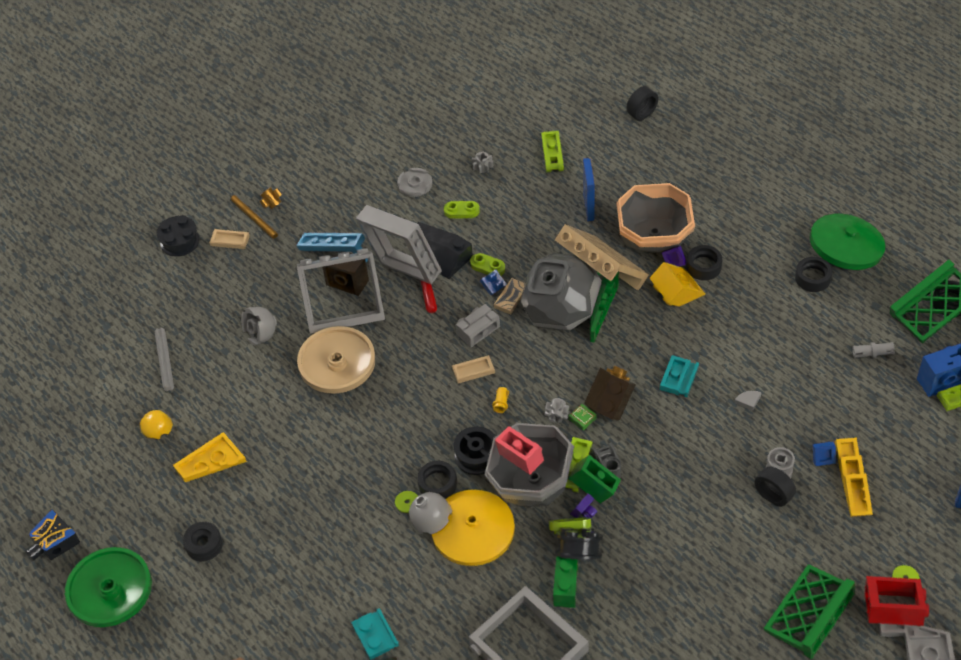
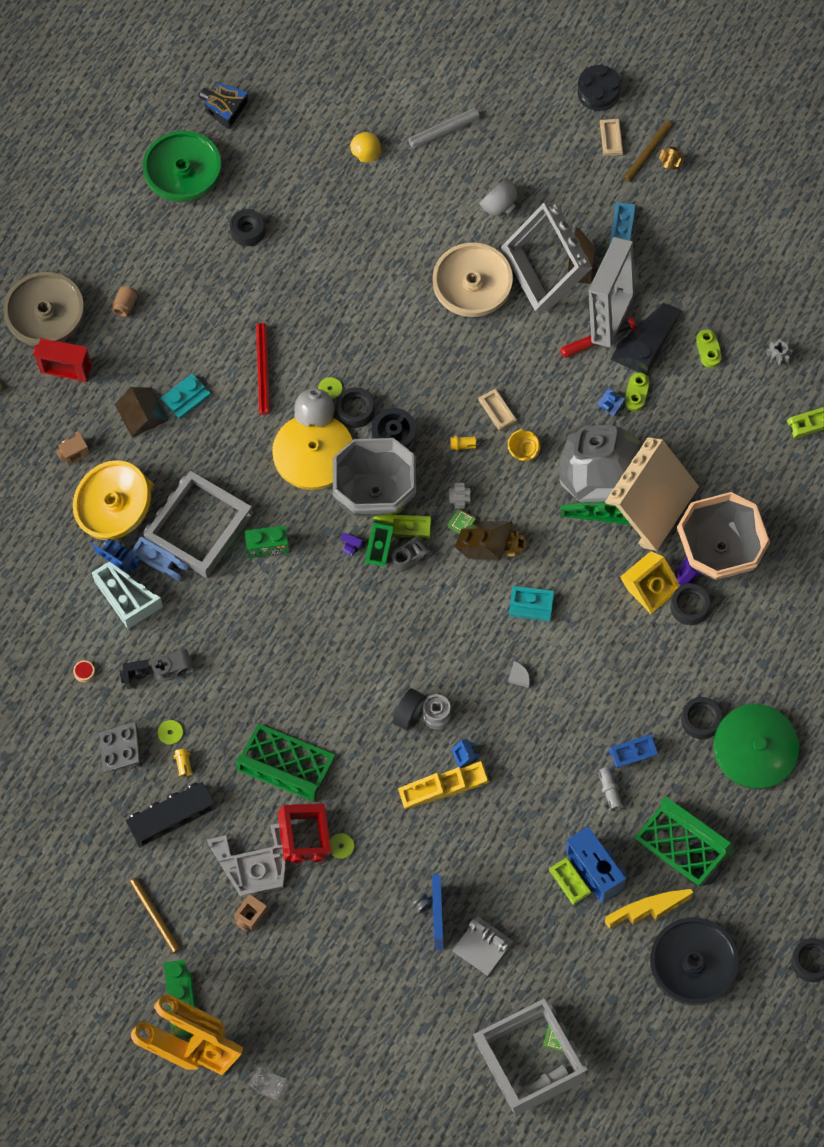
camera: 75 degrees right, 15 degrees up
(209, 458) = (337, 205): yellow wing -> none
(367, 556) = (263, 370): none -> red axle
(411, 186) = (732, 296): light grey tile -> none
(477, 325) = (550, 399): light grey brick -> none
(510, 296) = (592, 418): tan tile -> none
(519, 351) = (524, 440): none -> yellow hair
(519, 450) = (370, 458): coral brick -> none
(575, 523) = (331, 534): lime plate -> none
(579, 544) = (302, 542): black wheel -> none
(588, 189) = (749, 463): blue tile -> none
(839, 325) = (633, 751): none -> blue hinge

